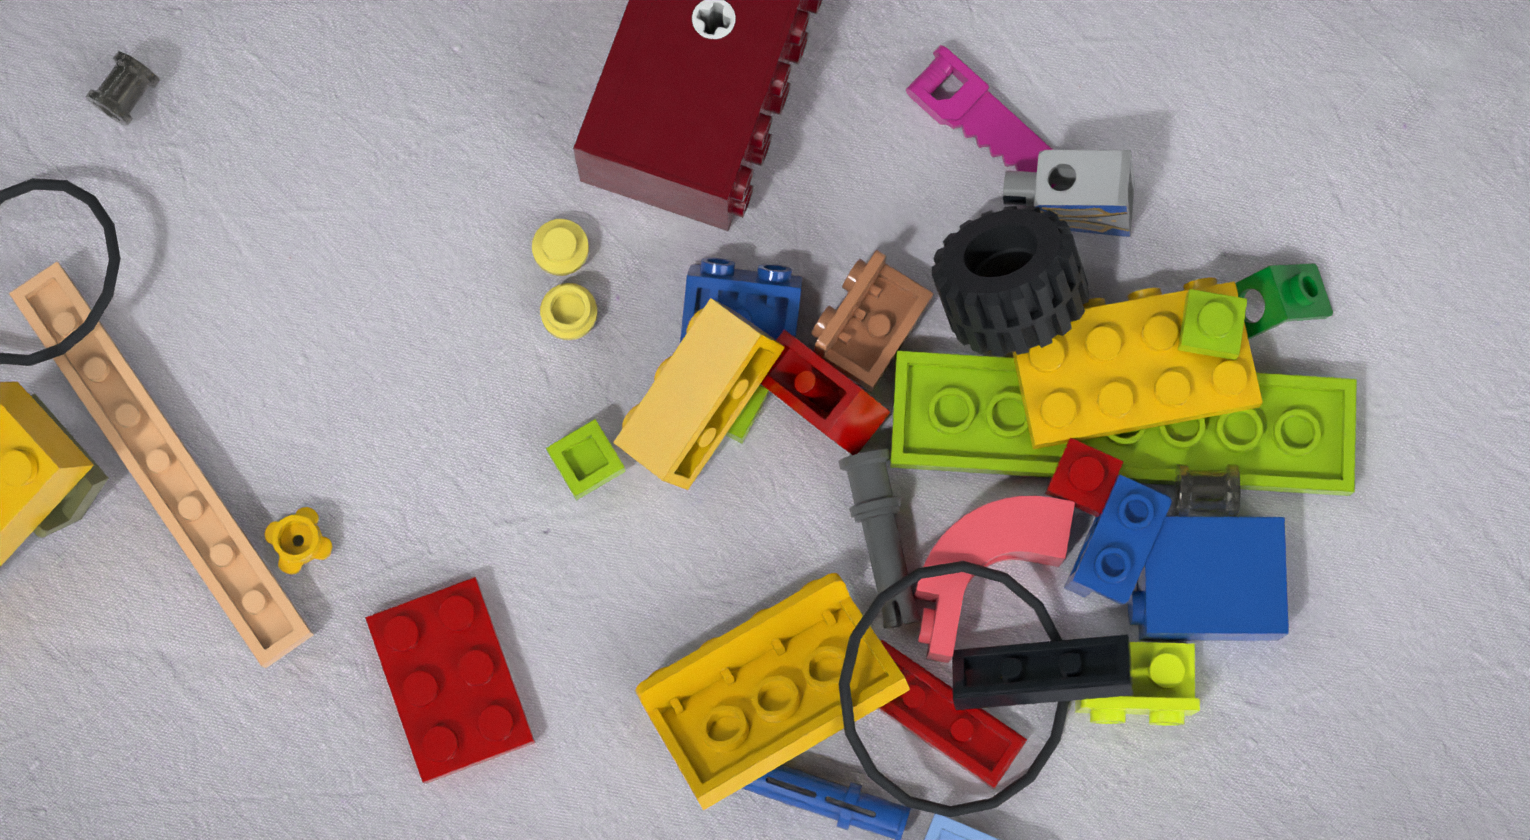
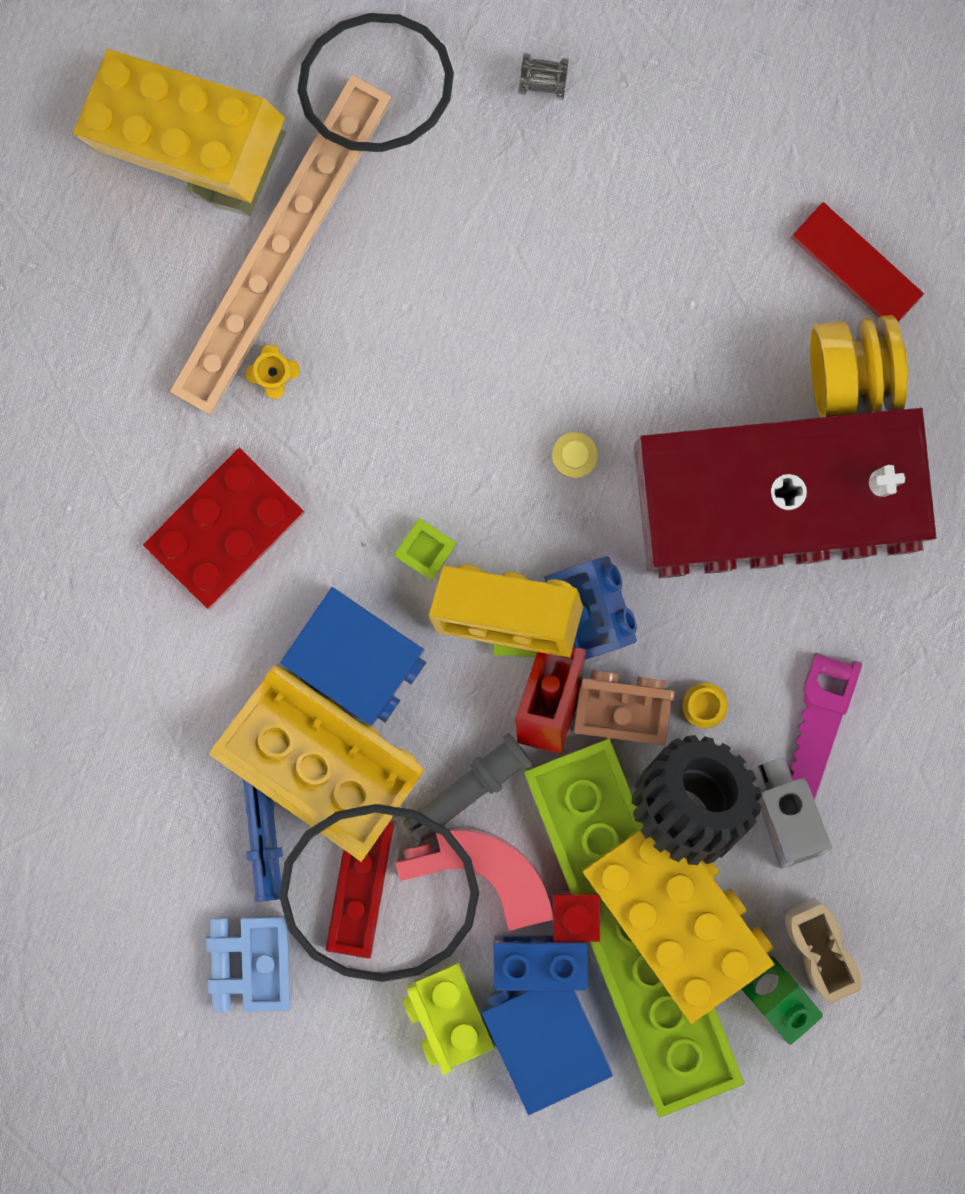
camera: 70 degrees right, 10 degrees up
(568, 311) = (530, 484): light yellow plate -> none
(670, 593) = (354, 657): none -> blue brick
(908, 233) = (704, 705): none -> yellow plate
(1042, 672) = (419, 950): black tile -> none
(1207, 490) = (606, 1011): clear smoke bush -> none
(1212, 324) = (730, 963): lime plate -> none
(1255, 226) = (825, 961): none -> tan brick

